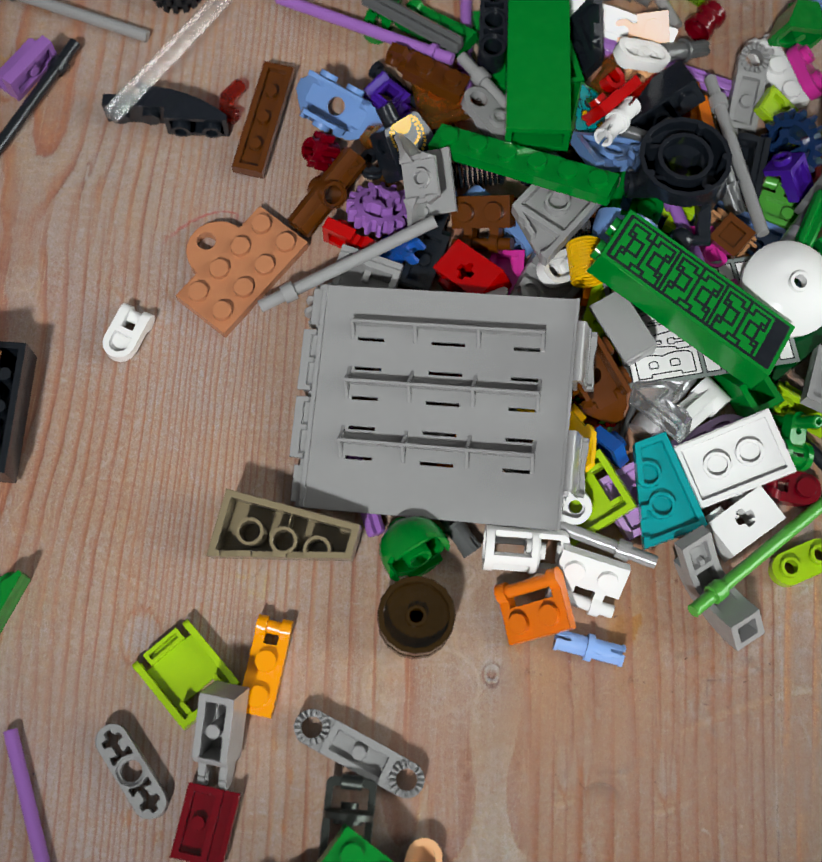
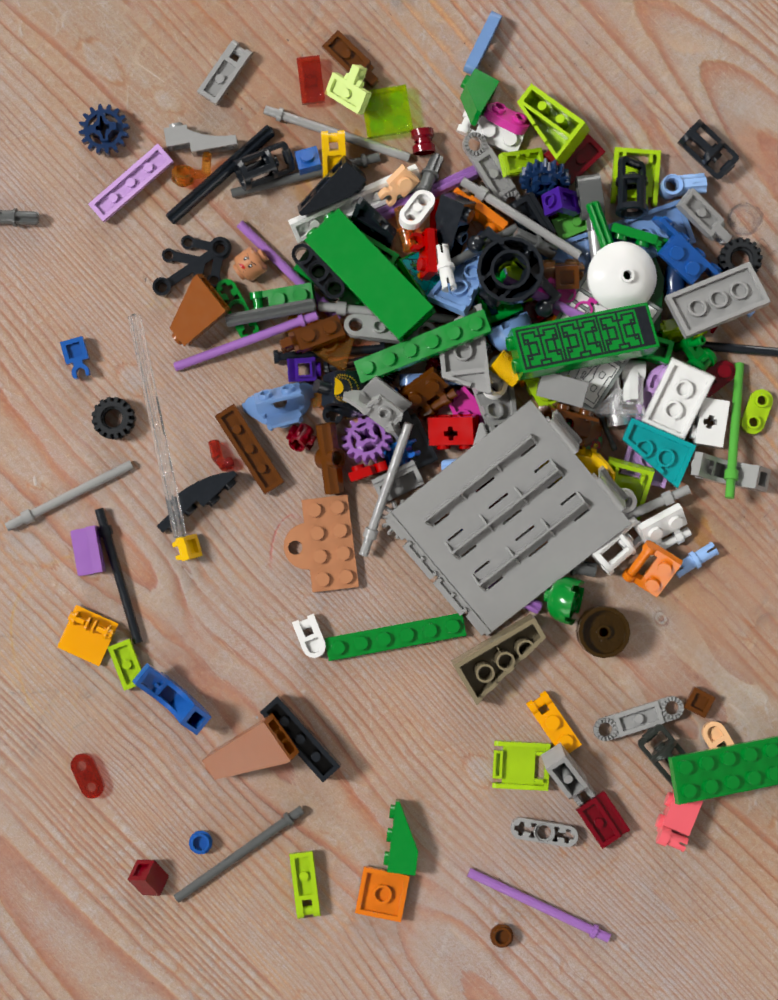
camera: 40 degrees left, 15 degrees up
(111, 145) = (188, 547): none -> yellow tile
(207, 416) = (395, 636): none -> green plate
(442, 805) = (699, 702): none -> reddish brown plate
(612, 445) = (611, 449): blue plate -> none

